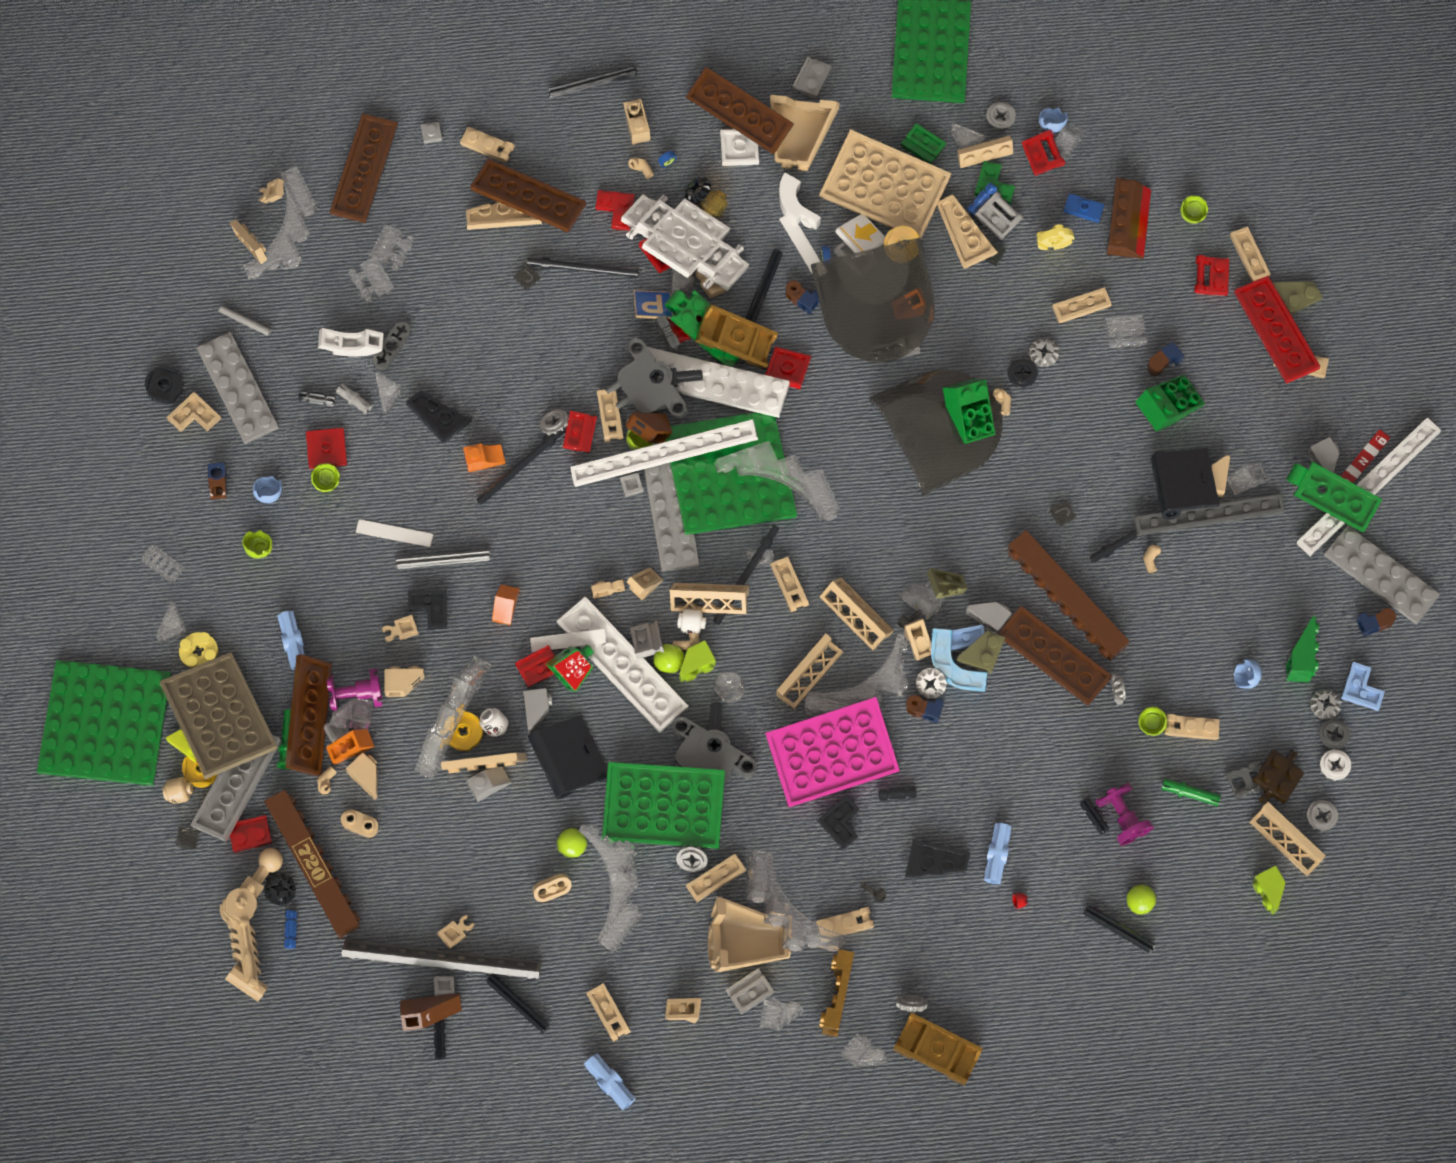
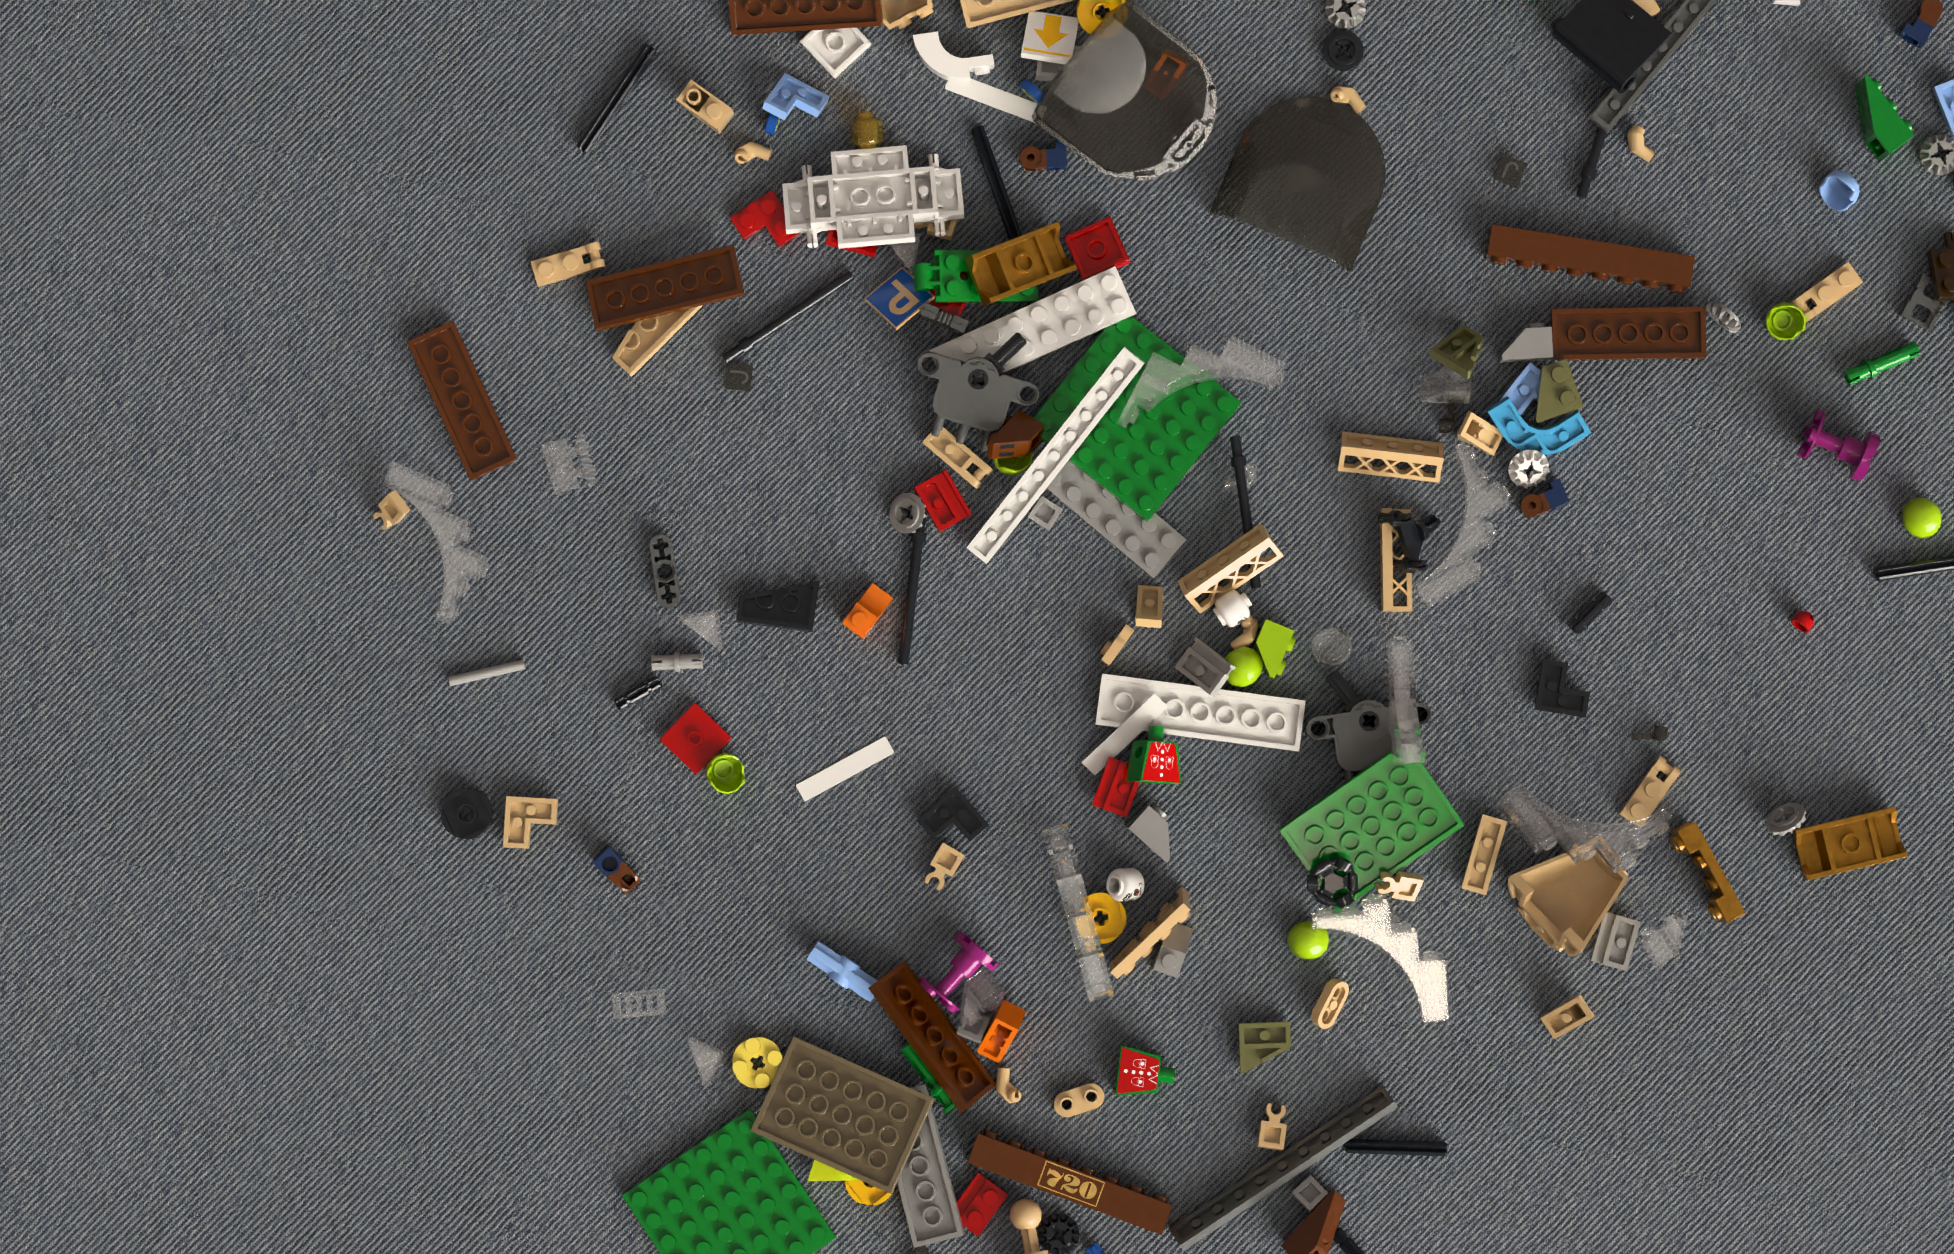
camera: 30 degrees left, 15 degrees up
(177, 790) = (868, 1223): tan head -> none
(237, 388) = (545, 752): light grey plate -> none
(249, 240) = (418, 585): tan plate -> none
(257, 544) = (718, 902): lime hair -> none
(267, 489) = (676, 835): light blue hair -> none
(351, 344) = (622, 605): white arch -> none
(365, 773) = (1042, 1046): tan slope -> none
(376, 276) = (582, 510): clear plate -> none
(400, 681) = (992, 921): tan slope -> none
(408, 835) = (1140, 1072): none -> red torso
(431, 132) = (496, 300): light grey plate -> none
(443, 559) = (920, 755): axle -> none
(493, 877) = (1261, 1042): none -> olive wing
(505, 604) = (1025, 748): slope -> none
(564, 756) = (1228, 859): black door -> none
(607, 1011) = (1492, 1080): tan plate -> none
(609, 1081) = (1555, 1149): light blue piece -> none
(613, 817) = (1333, 882): none -> black piece
(651, 855) = (1403, 886): none -> tan plate
(684, 860) = (1438, 863): light grey gear -> none
(692, 153) = (791, 93): none -> light blue plate
(701, 192) = (843, 132): black gear -> none
(731, 758) = (1401, 697): none -> clear arch
(789, 583) = (1296, 483): tan plate -> none
(829, 662) = (1411, 535): none -> black axle
(832, 752) = (1493, 627): dark pink plate -> none
(862, 1053) = (1779, 911): clear slope -> none
(935, 860) = (1685, 651): black wing -> none
(970, 409) = (1329, 141): green slope -> none
(997, 853) = (1742, 591): light blue piece -> none
(1094, 816) = (1805, 470): black axle -> none

